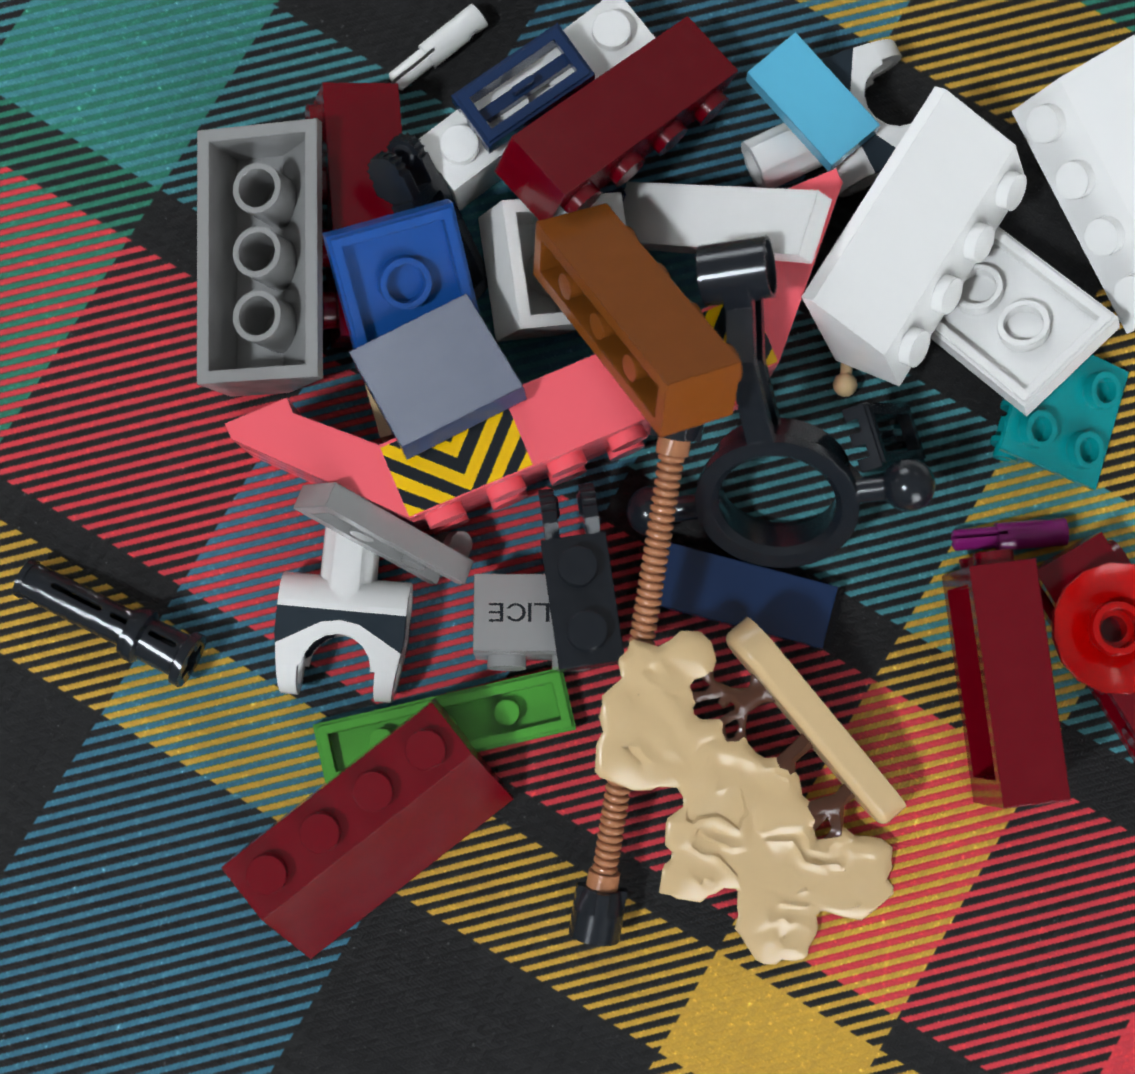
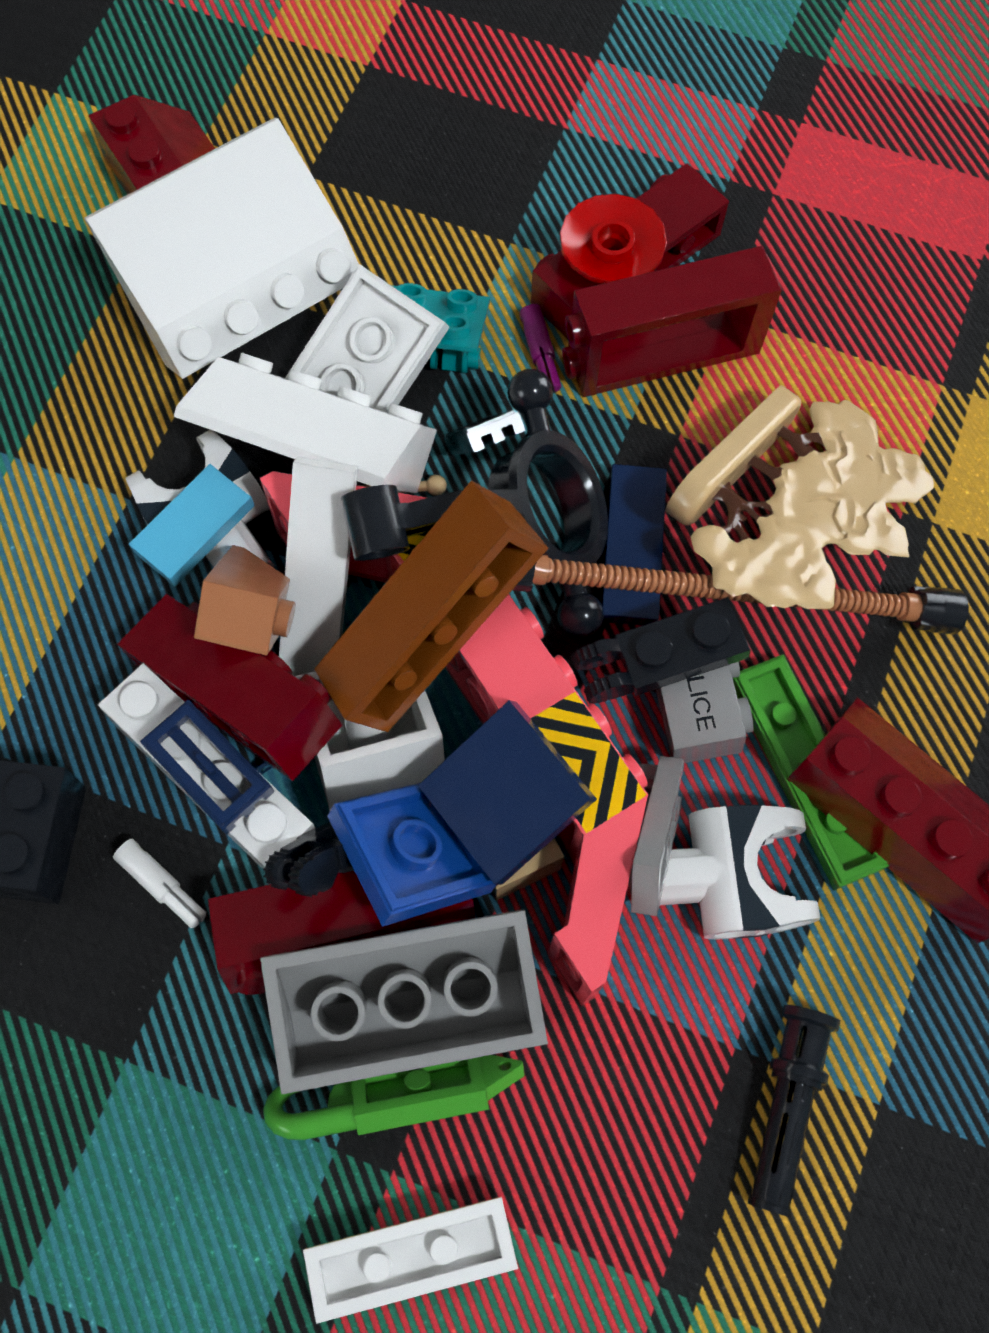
camera: 100 degrees left, 15 degrees down
(47, 240) = (409, 1259): none -> white plate
(179, 245) = (398, 1099): none -> bright green plate
(695, 139) = (244, 603): none -> nougat slope

